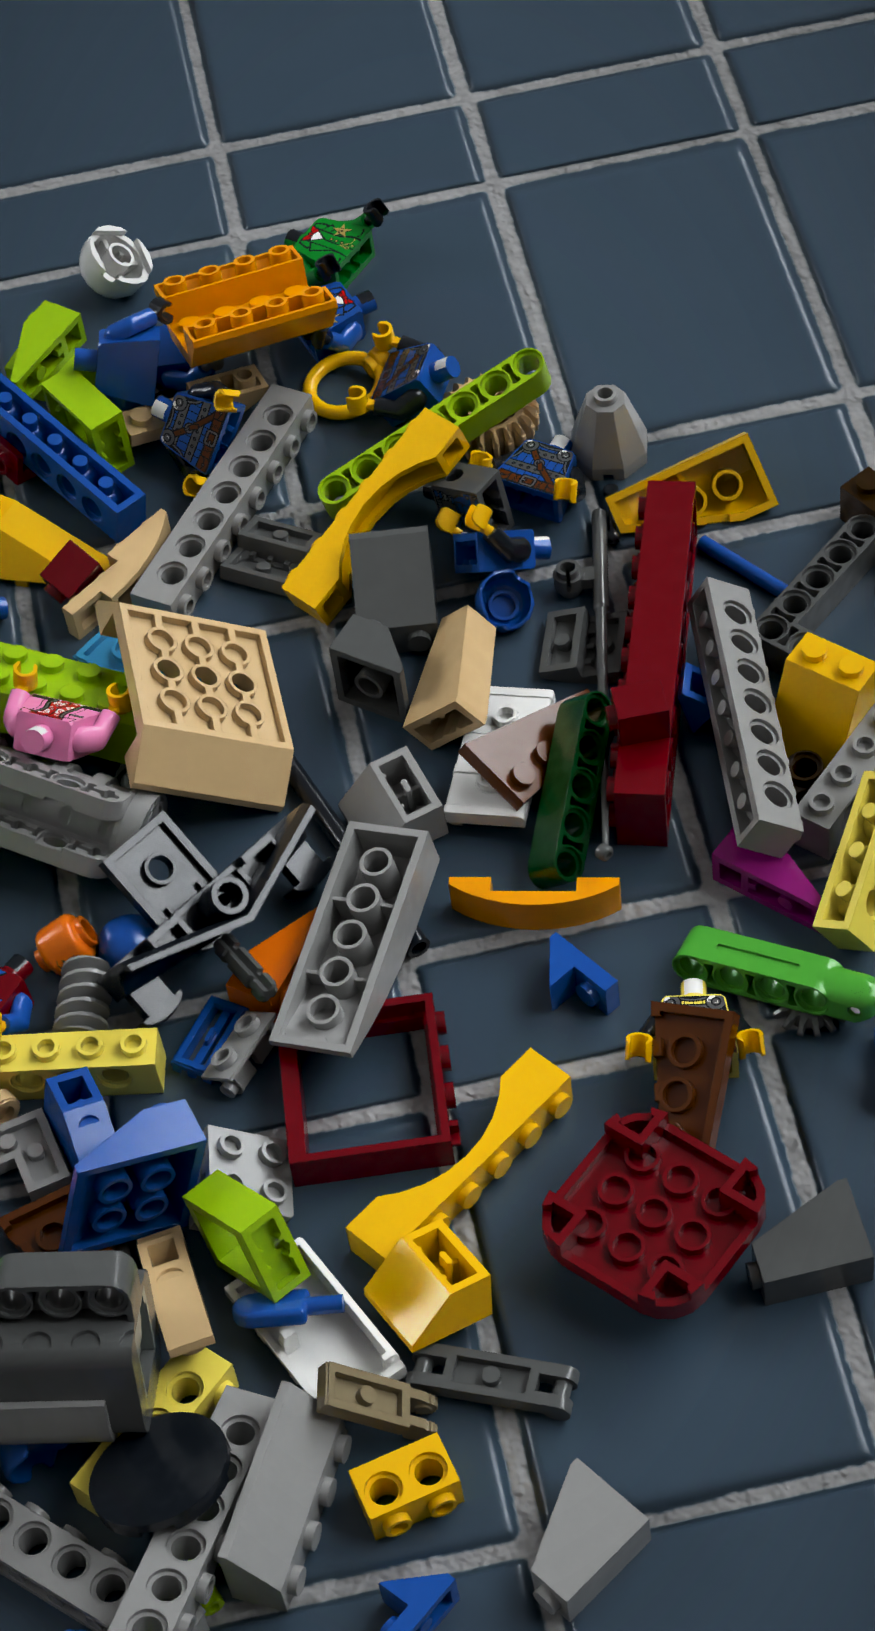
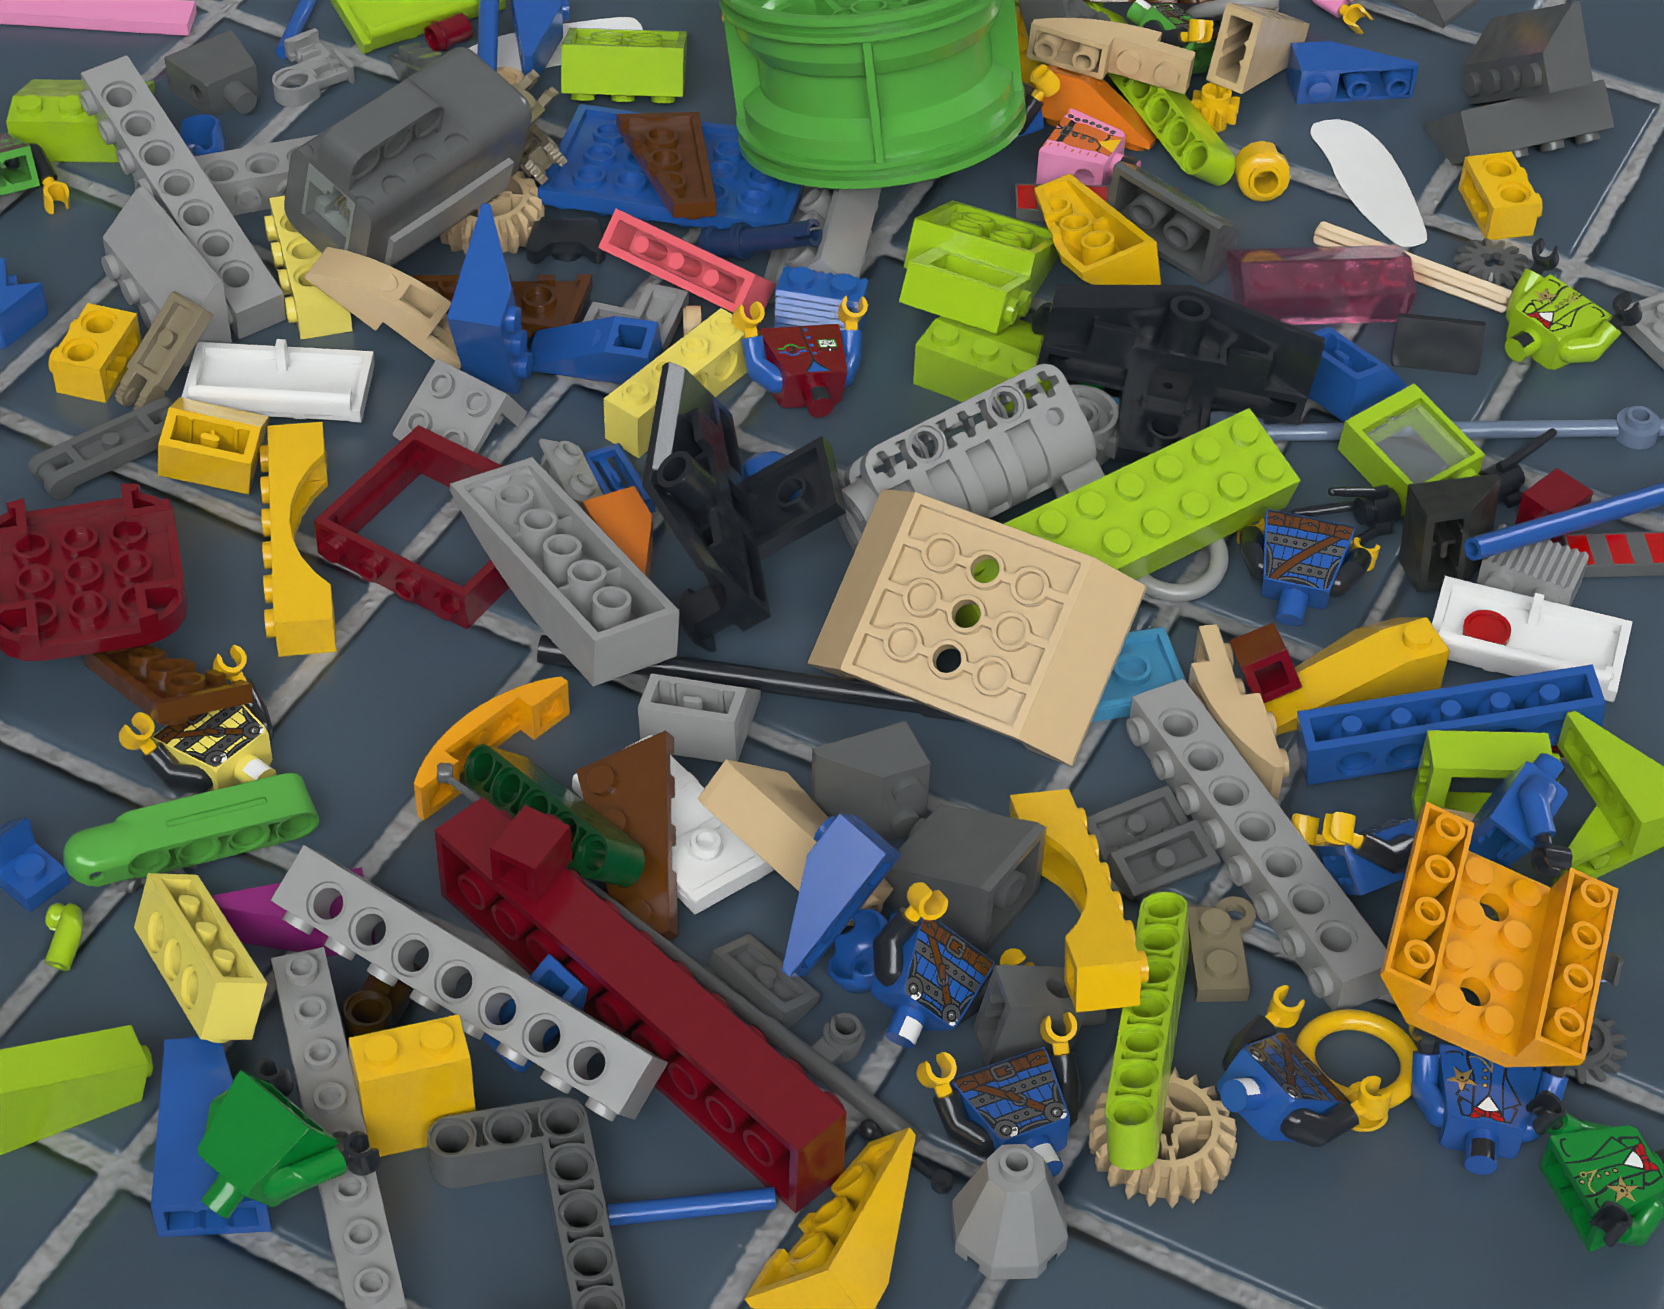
camera: 120 degrees right, 5 degrees down
(56, 726) = (1019, 473): bright pink torso -> none
(64, 939) = (807, 426): orange head -> none
(81, 998) = (752, 419): light grey piece -> none
(160, 1475) = (239, 203): black tile -> none
(245, 967) = (617, 493): dark grey axle -> none
(246, 1235) = (372, 343): lime window -> none
(293, 1309) = (303, 352): blue piece -> none
(306, 490) = (1218, 950): none -> dark tan hinge
(491, 605) = (835, 884): none -> slope
(575, 972) = (383, 718): blue slope -> none

